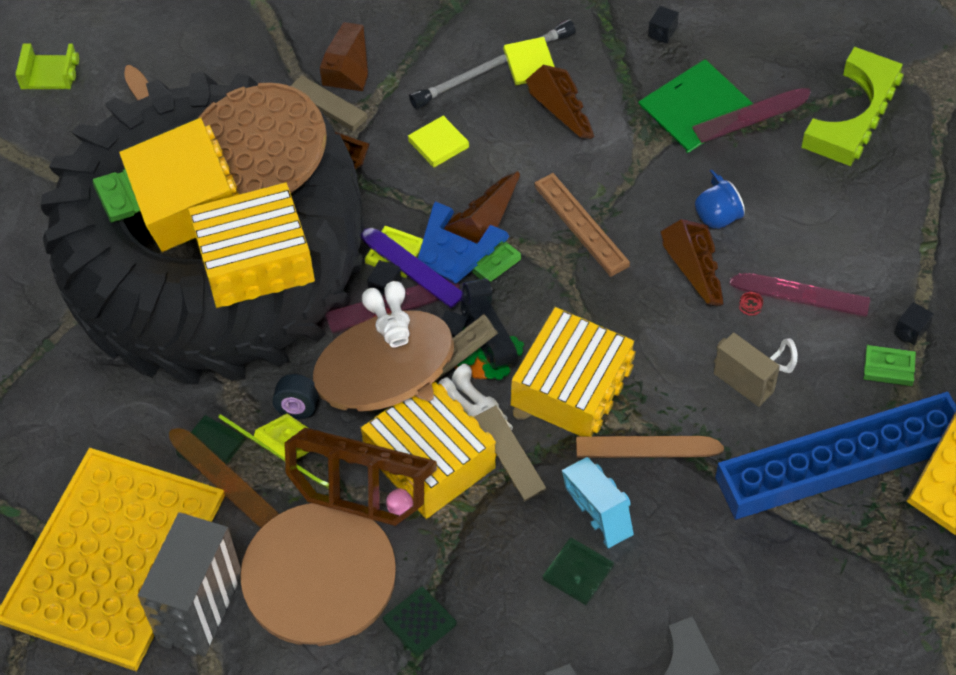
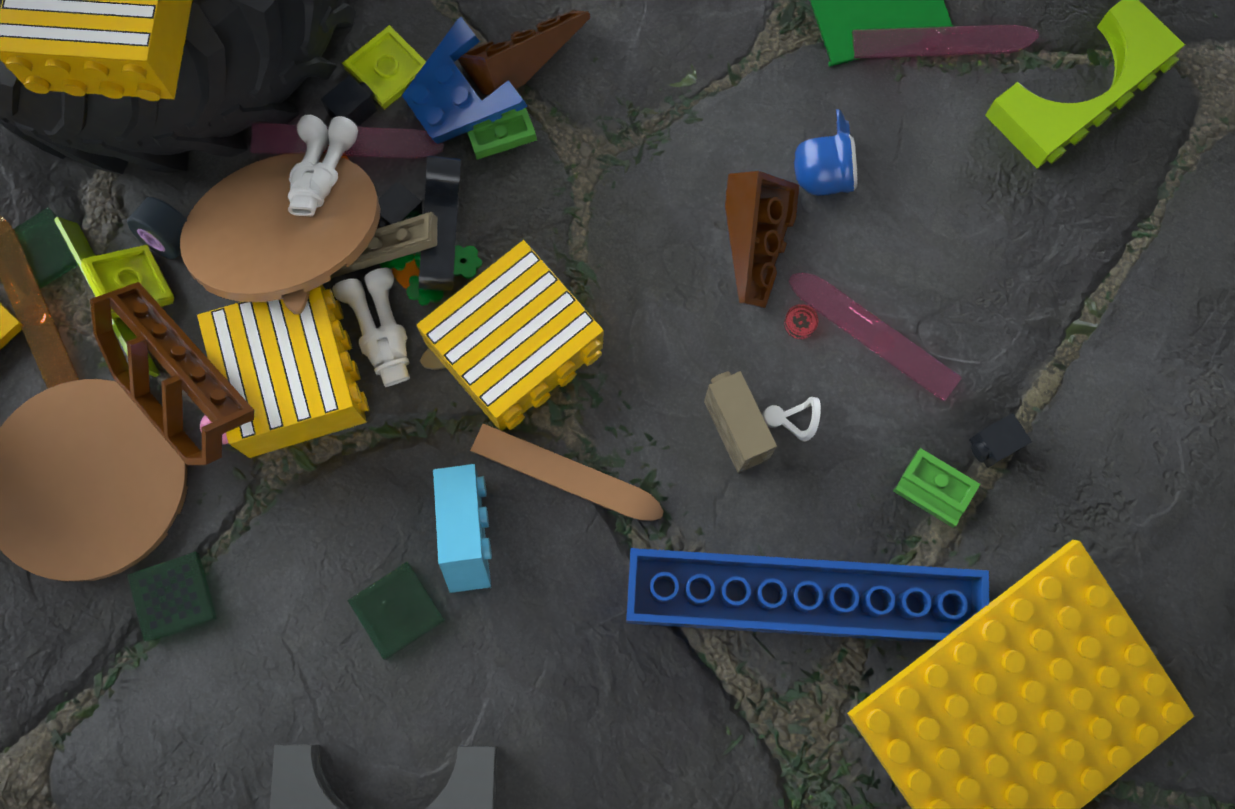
camera: 20 degrees right, 20 degrees up
(412, 266) = (390, 97): dark purple piece -> none
(511, 454) = (384, 415): dark tan tile -> none
(582, 225) = (639, 119): medium nougat tile -> none

